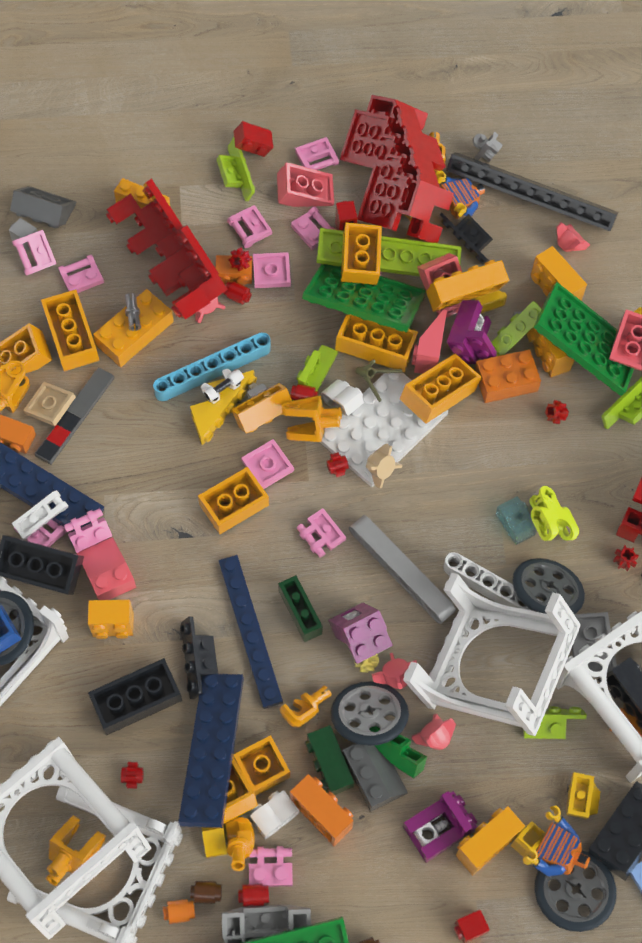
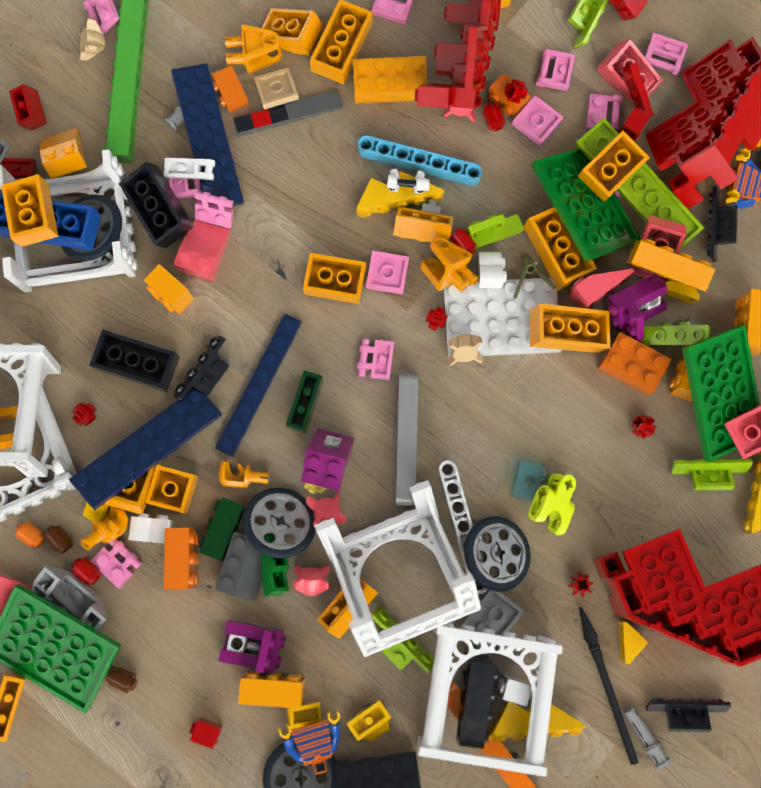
camera: 45 degrees right, 15 degrees up
(132, 312) = (395, 66): flat silver pin -> none
(321, 191) = (636, 88): none -> red plate
(482, 735) = (337, 614): none -> light orange brick

